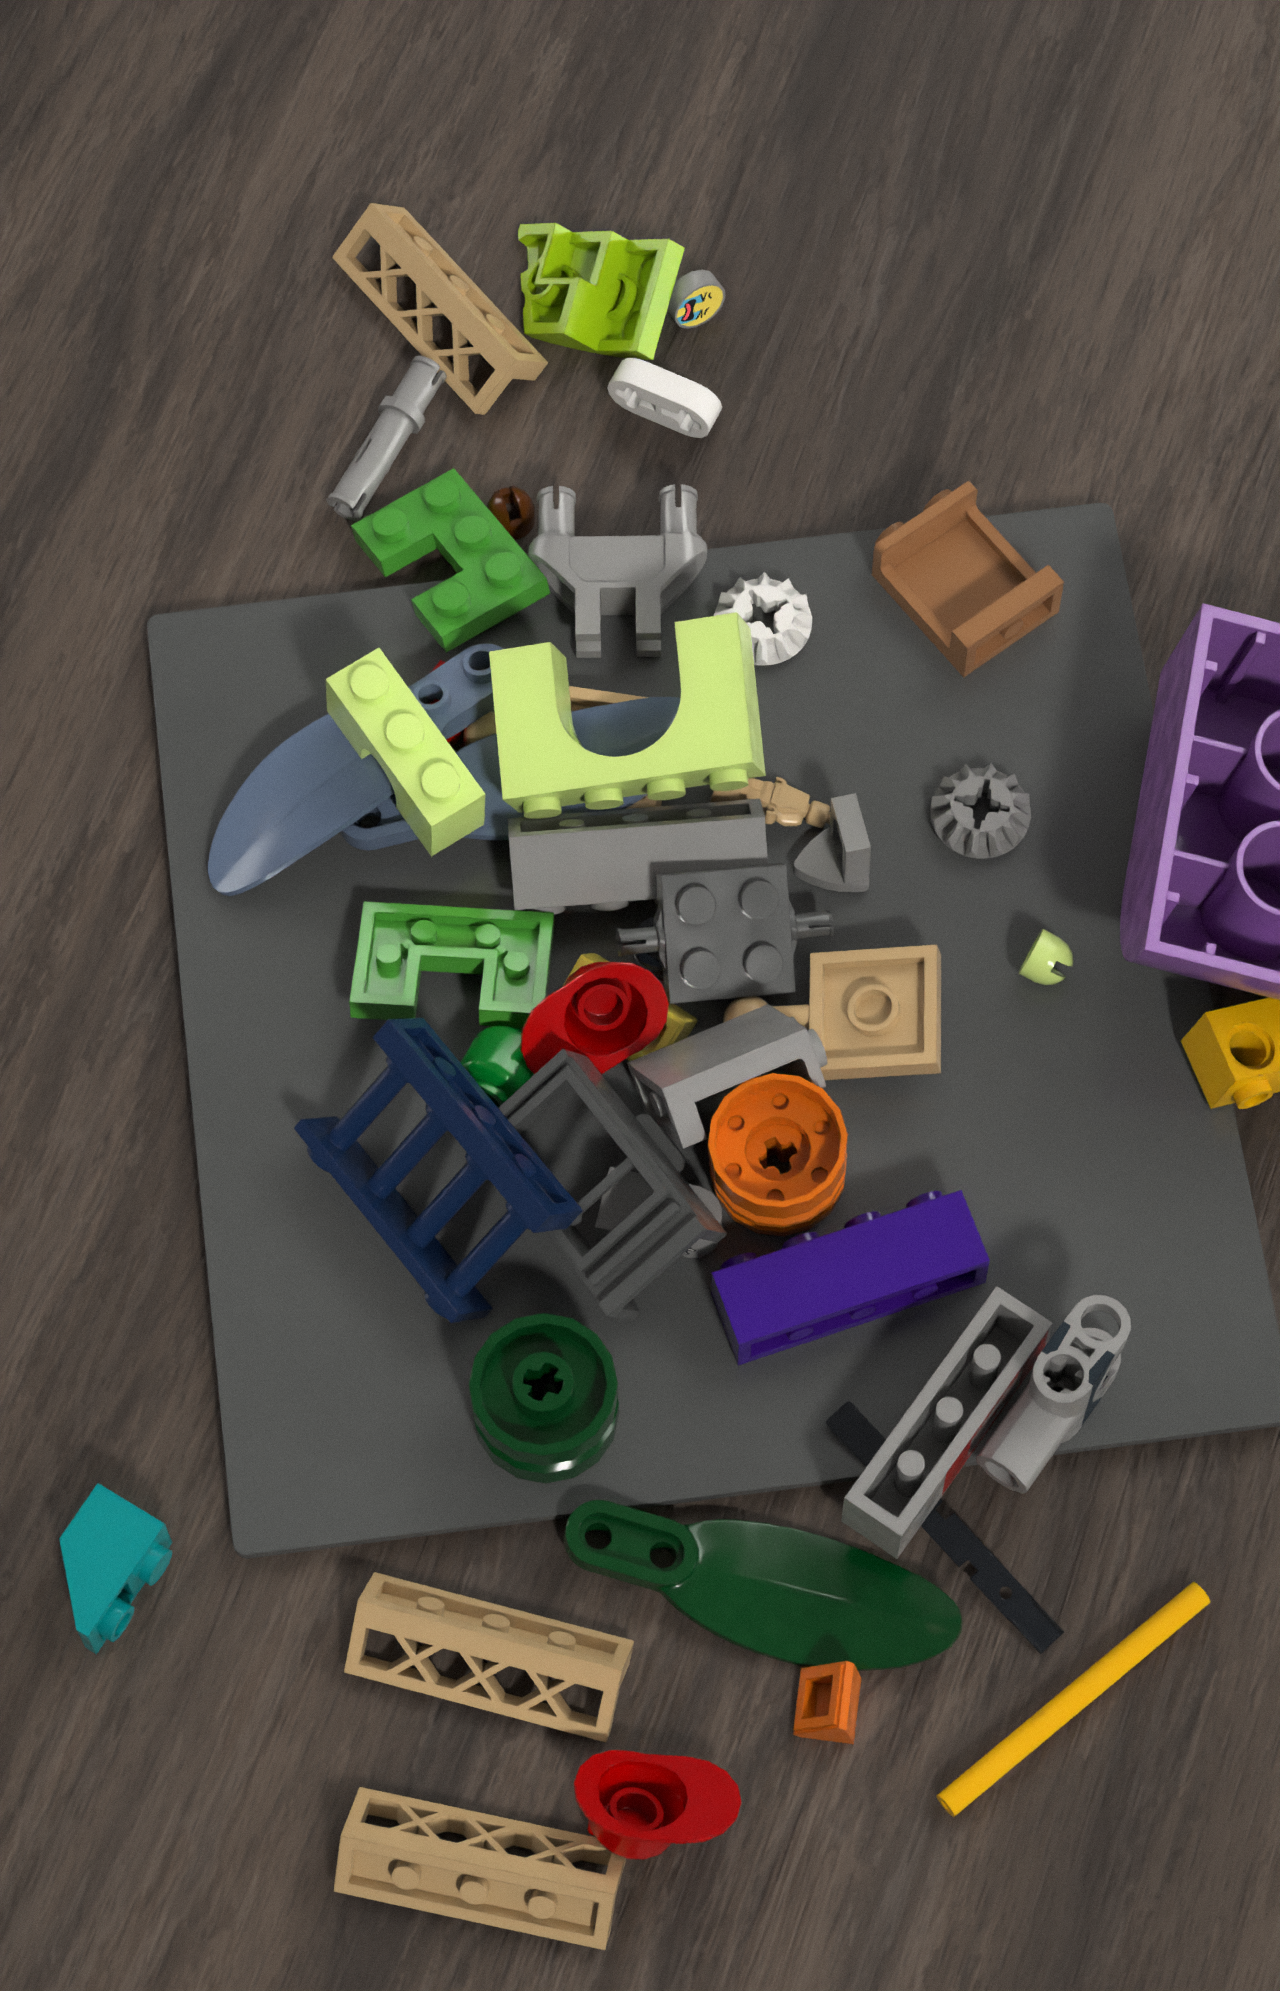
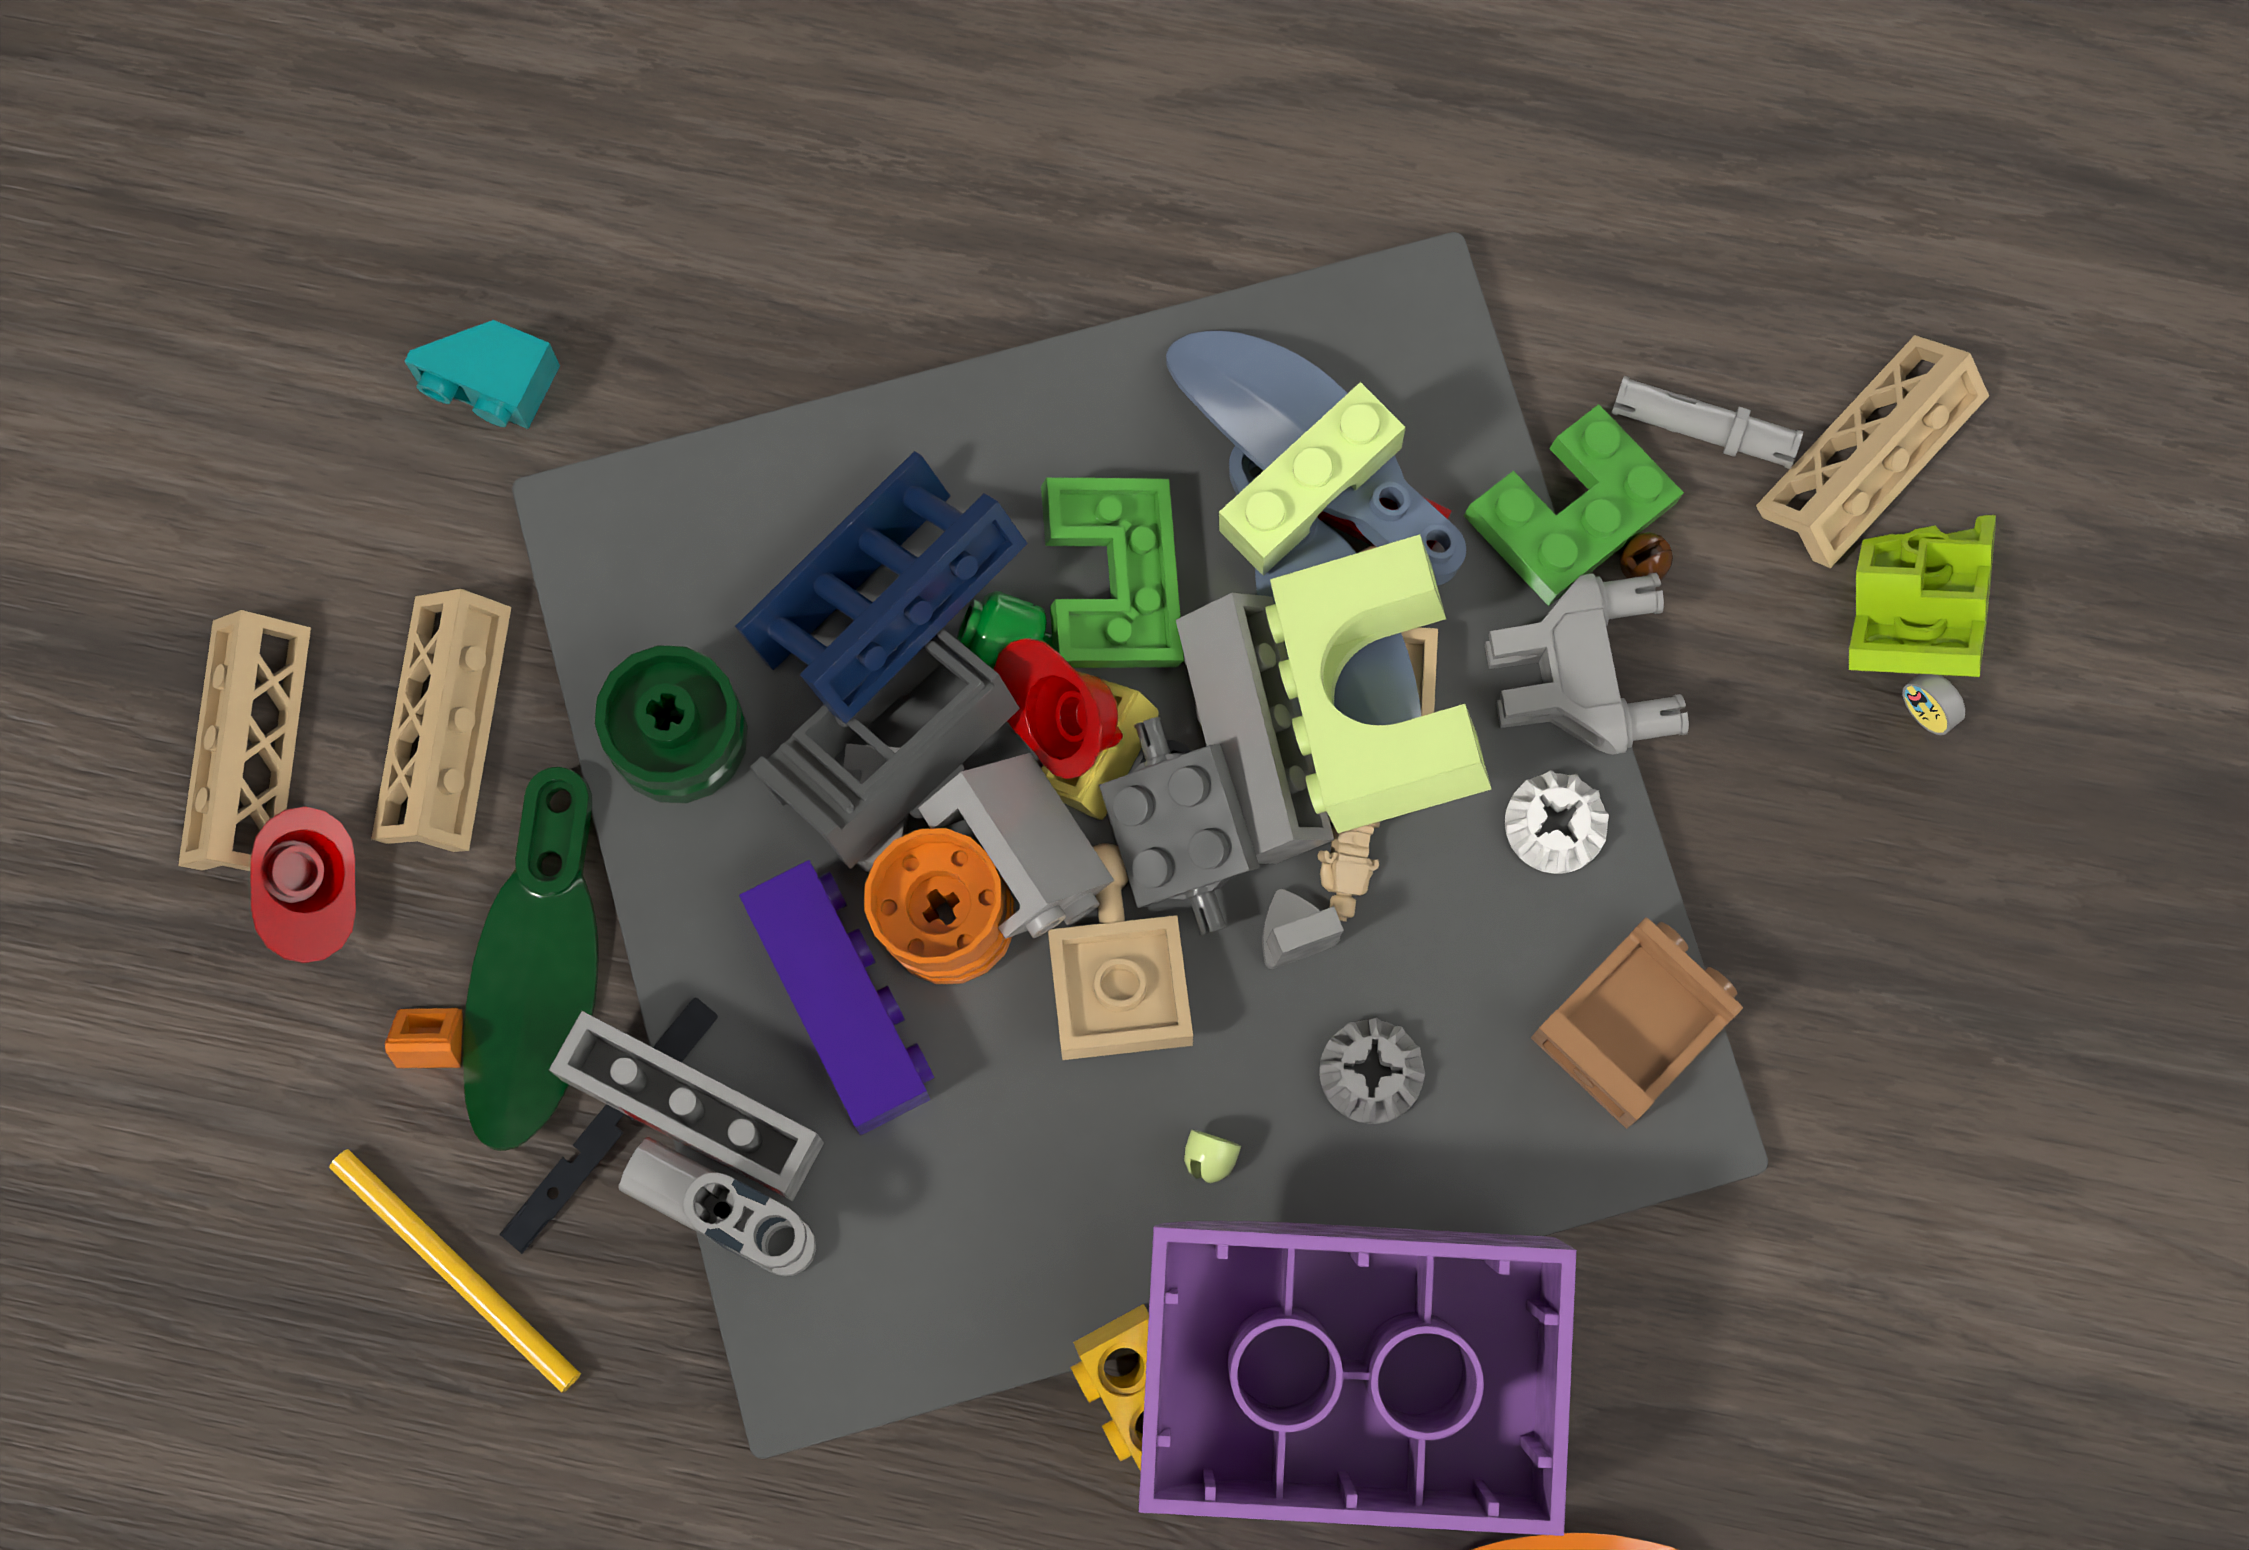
camera: 80 degrees right, 10 degrees up
(664, 397) = (1807, 689): white beam -> none

